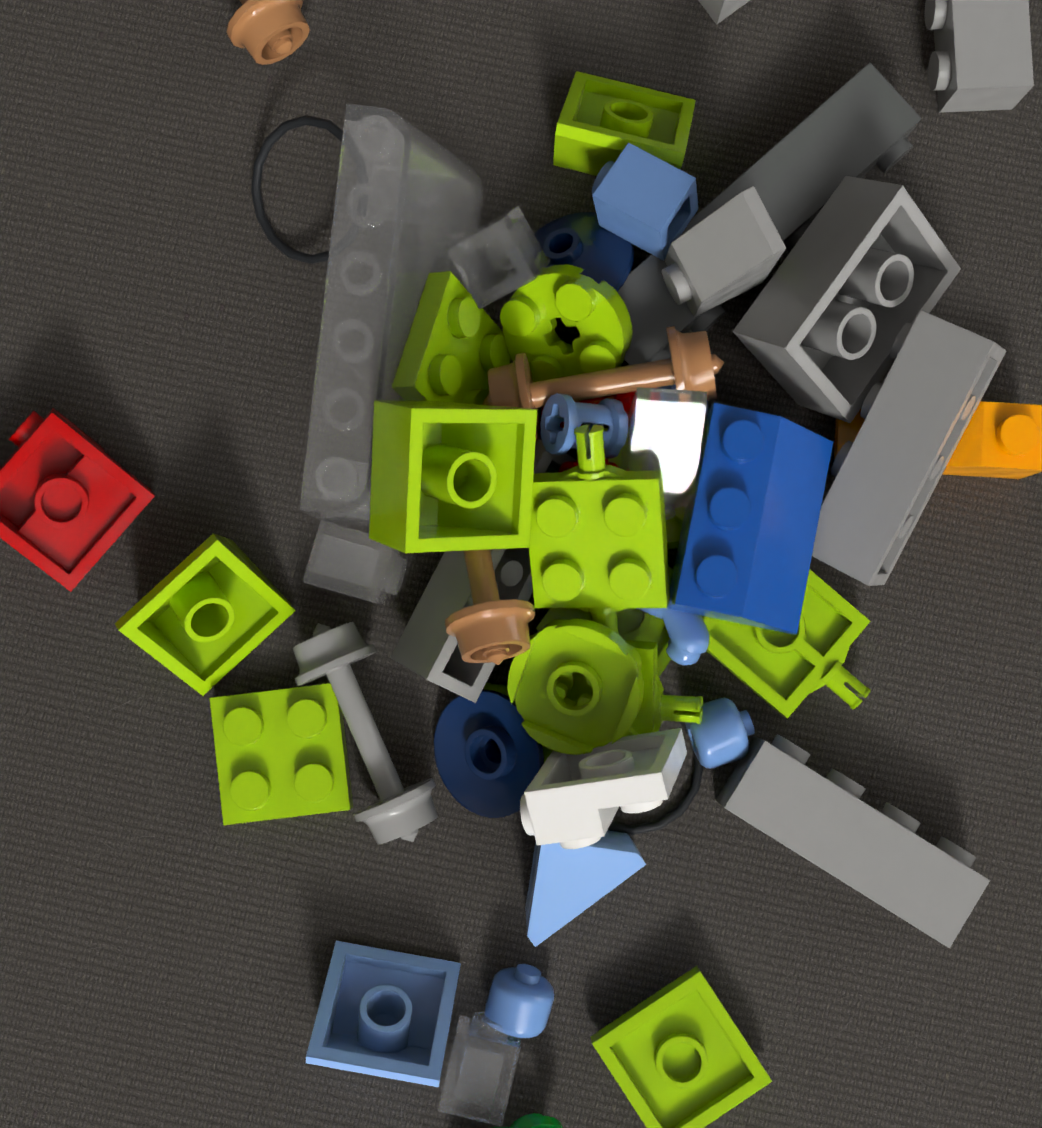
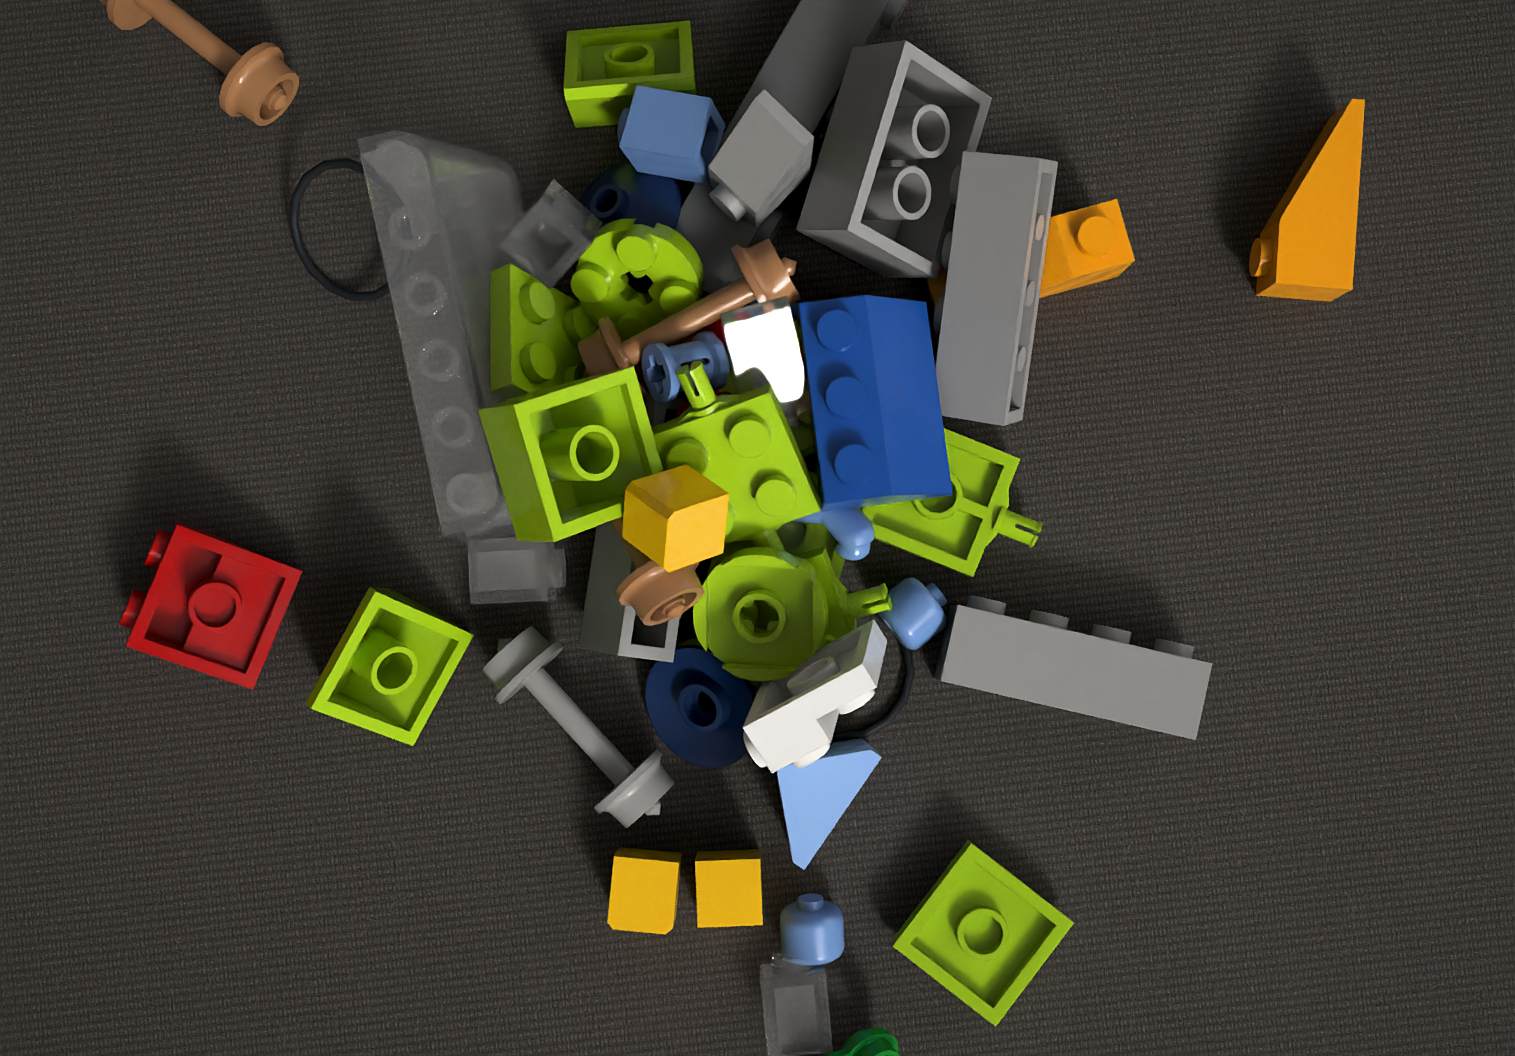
camera: 20 degrees left, 0 degrees up
(280, 754) = (506, 775): lime plate -> none
(374, 909) = (644, 890): none -> yellow piece
(384, 1014) = (687, 987): light blue slope -> none
(455, 935) = (728, 888): none -> yellow piece
(528, 568) = (675, 517): none -> yellow piece

